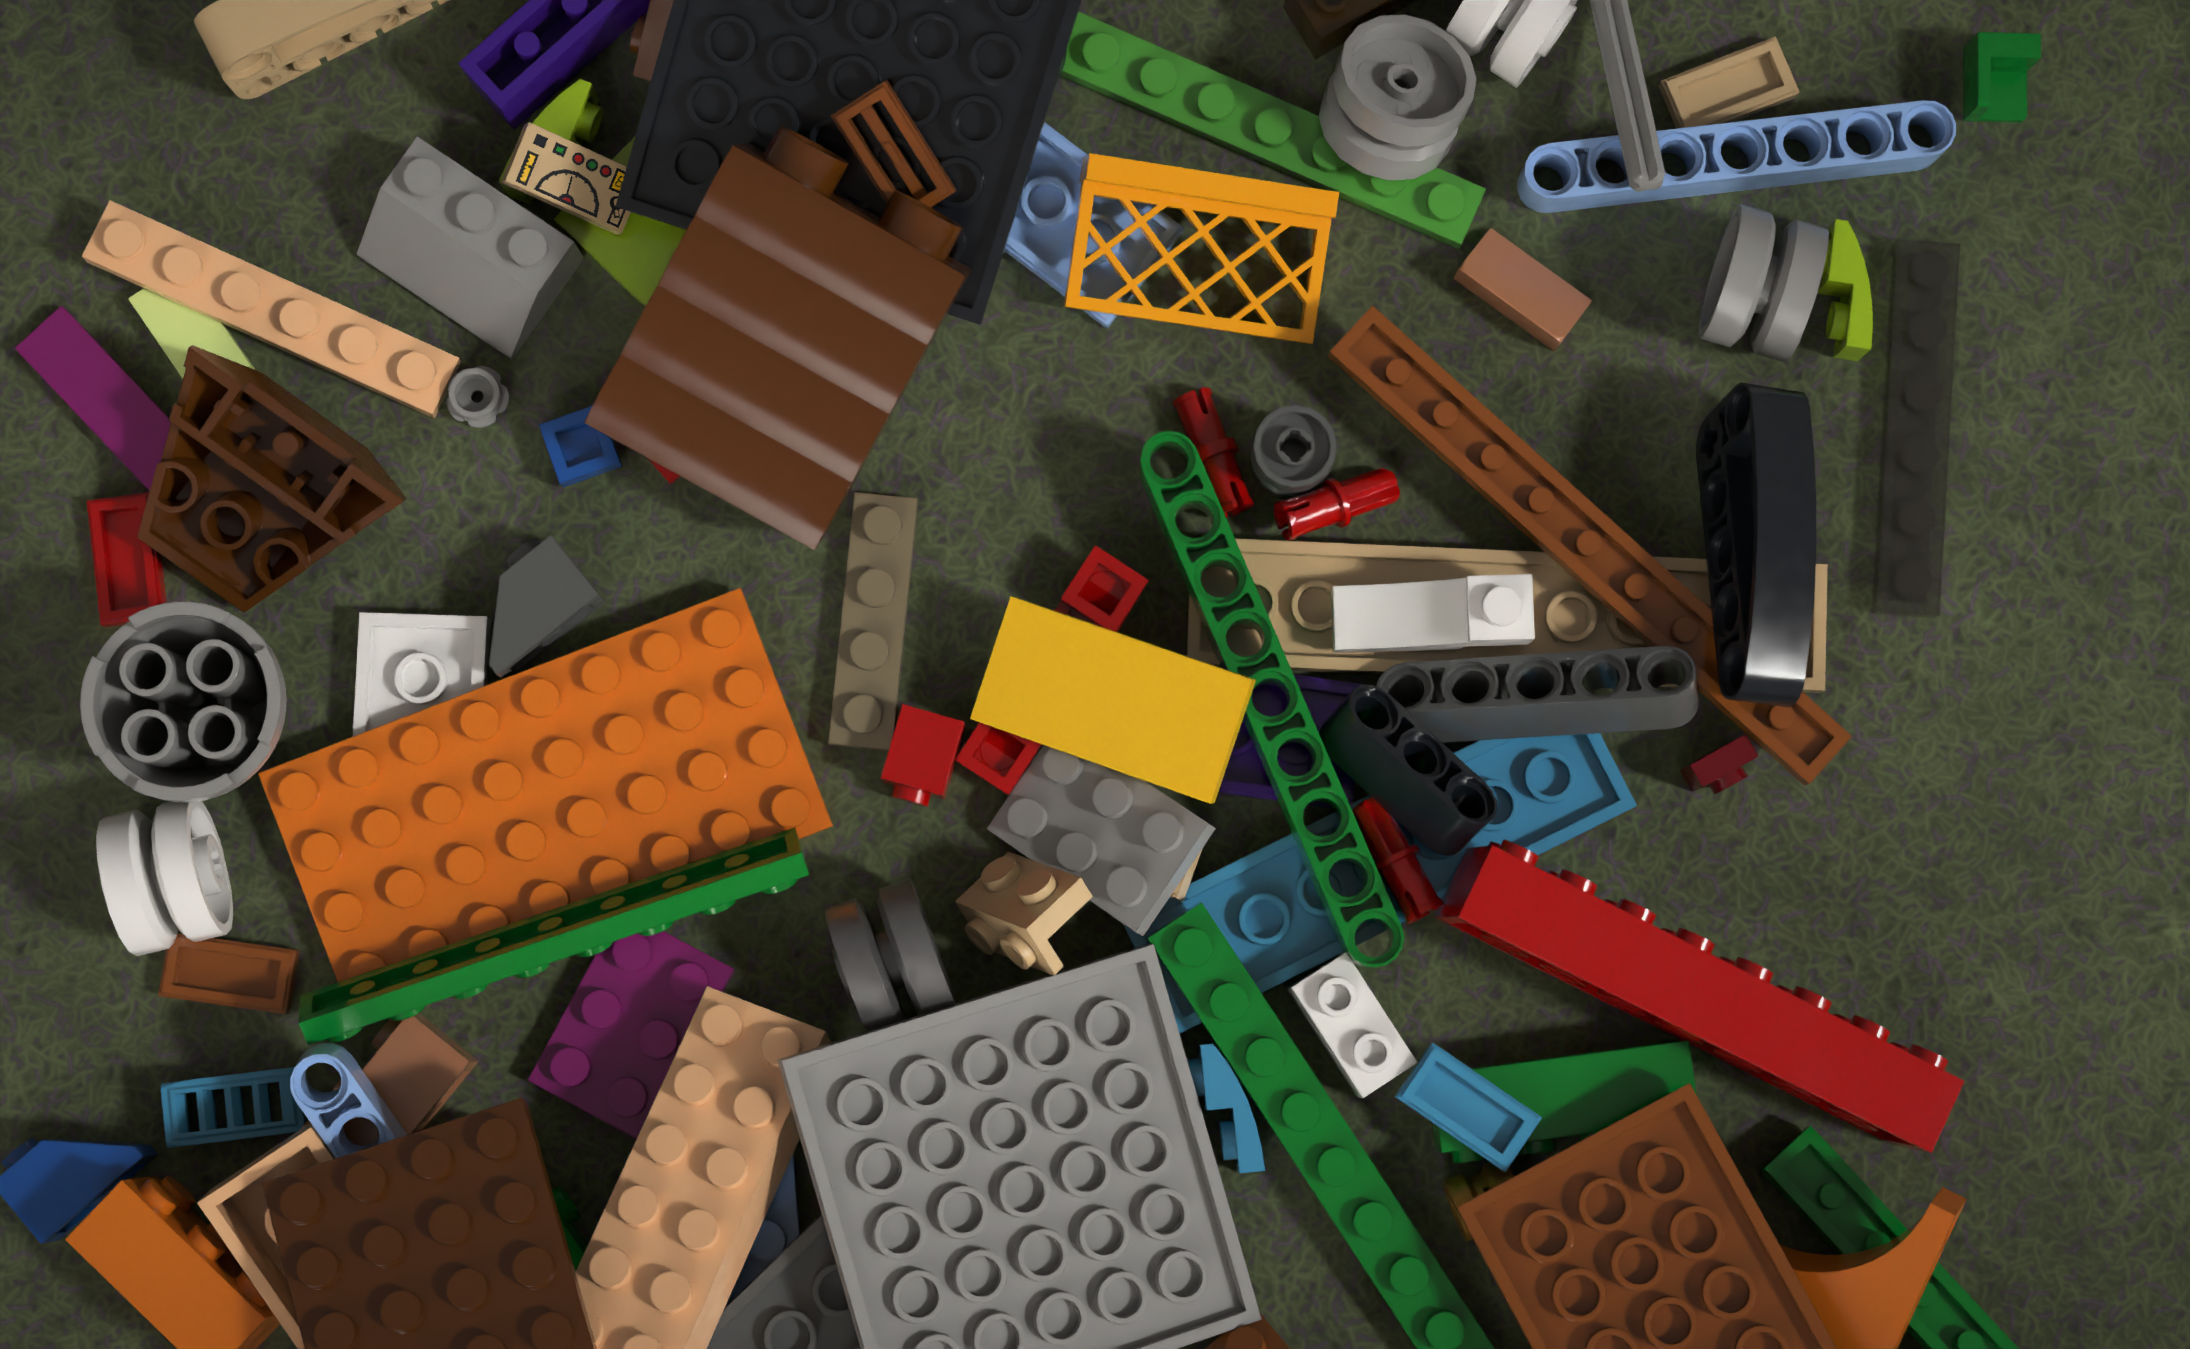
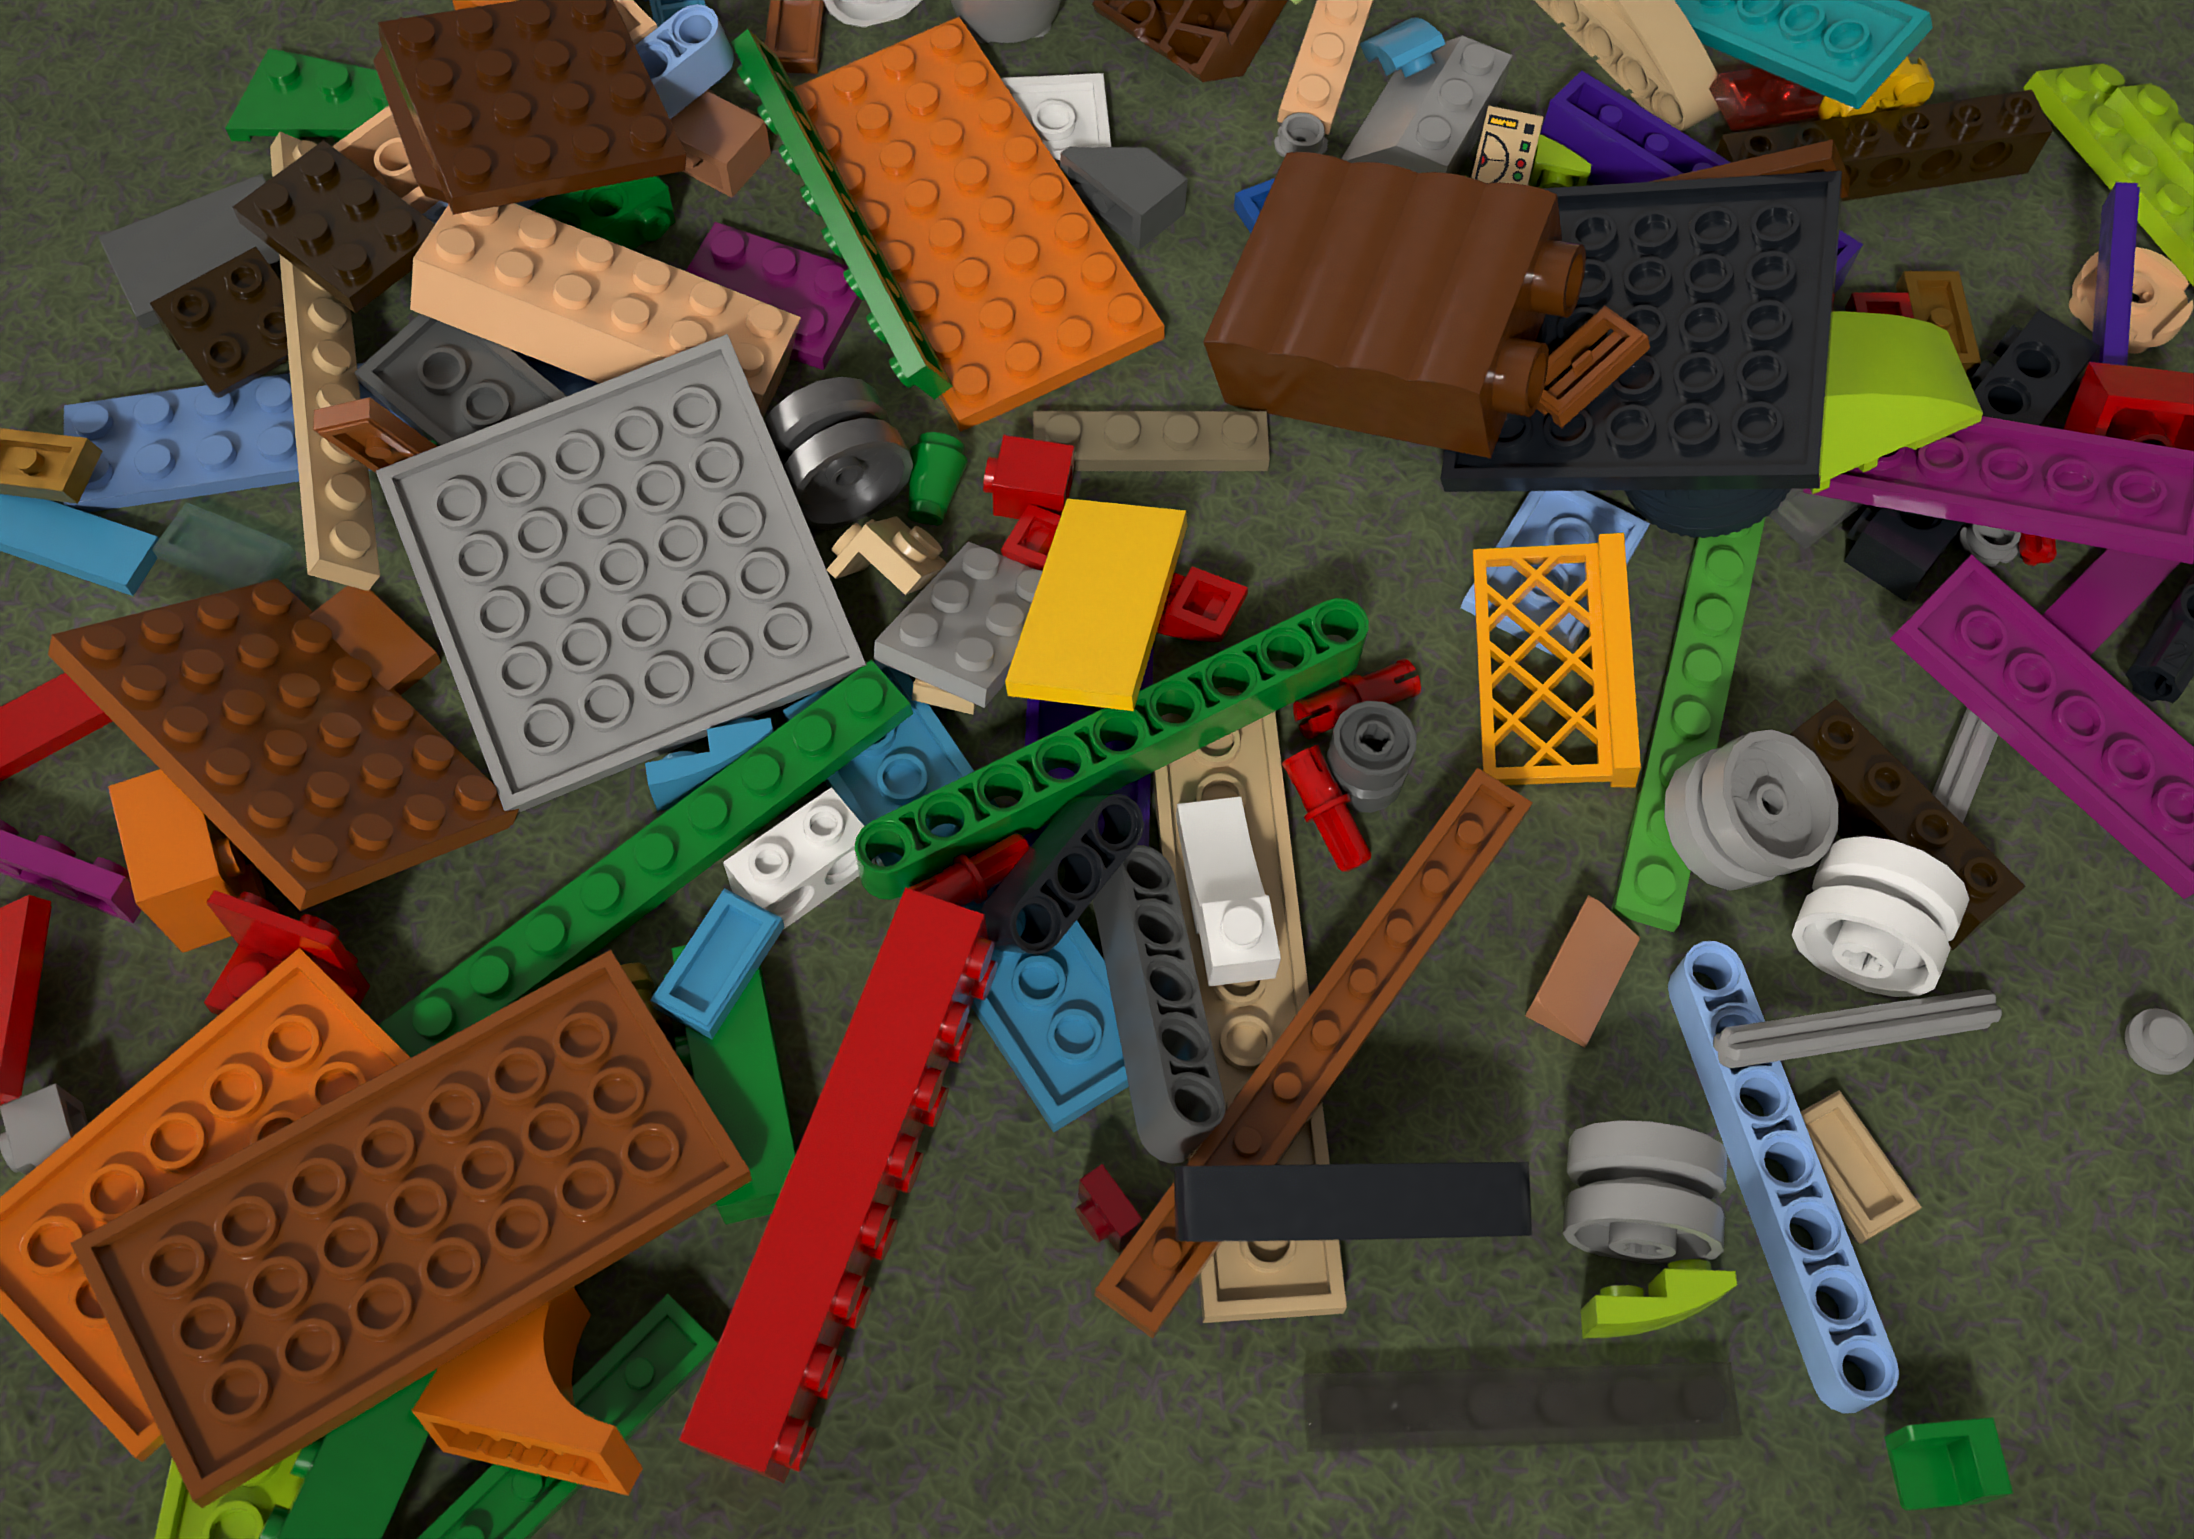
camera: 85 degrees right, 20 degrees down
(374, 258) = (1404, 47): none -> dark azure slope
(897, 854) = (935, 476): none -> green cone

